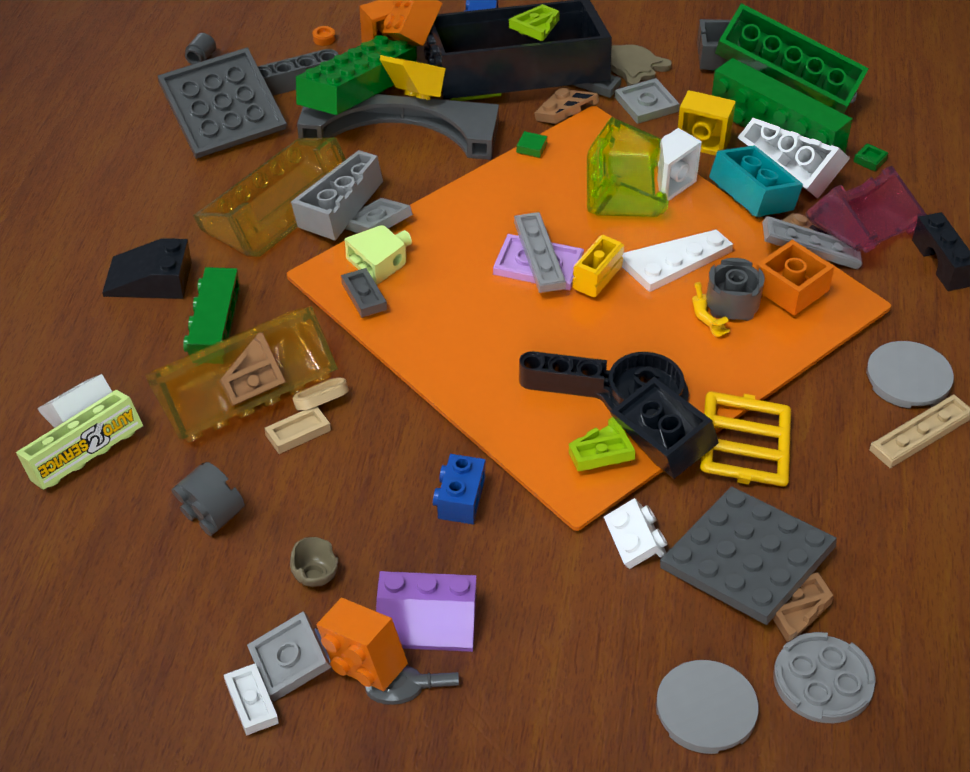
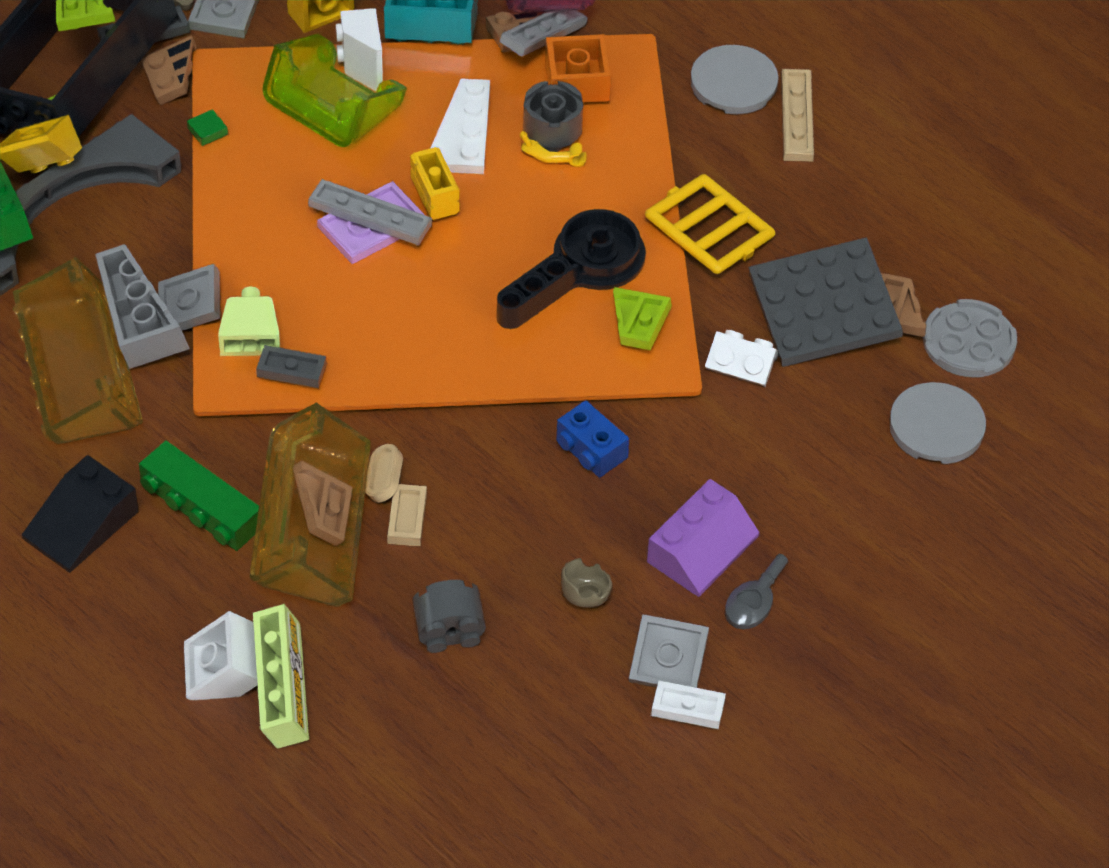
camera: 55 degrees left, 5 degrees up
(362, 644) = (716, 590): orange brick -> none
(666, 427) = (665, 260): black slope -> none

